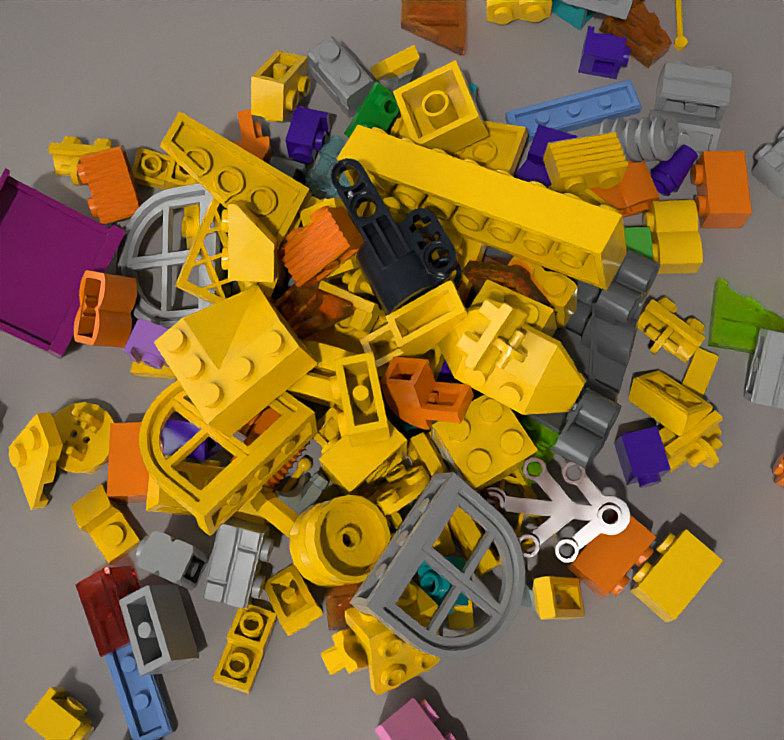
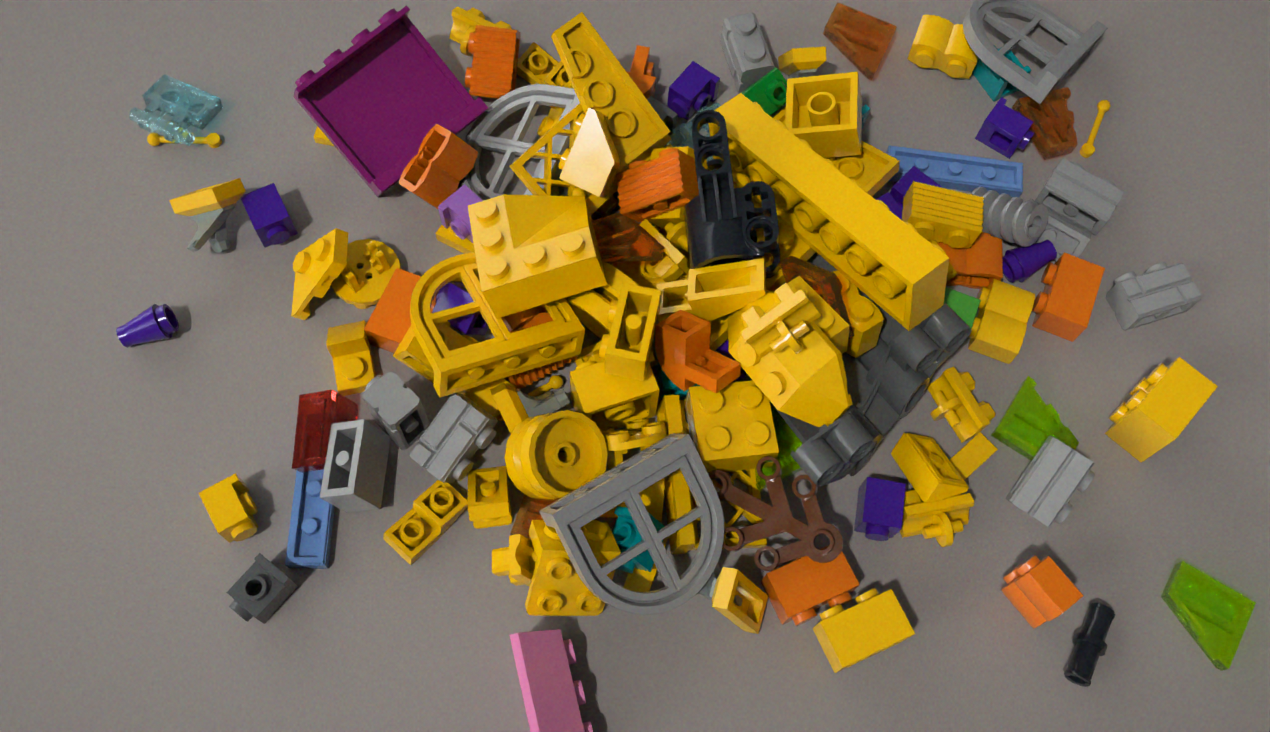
camera: 15 degrees right, 5 degrees down
(279, 86) = (685, 37): yellow brick -> none

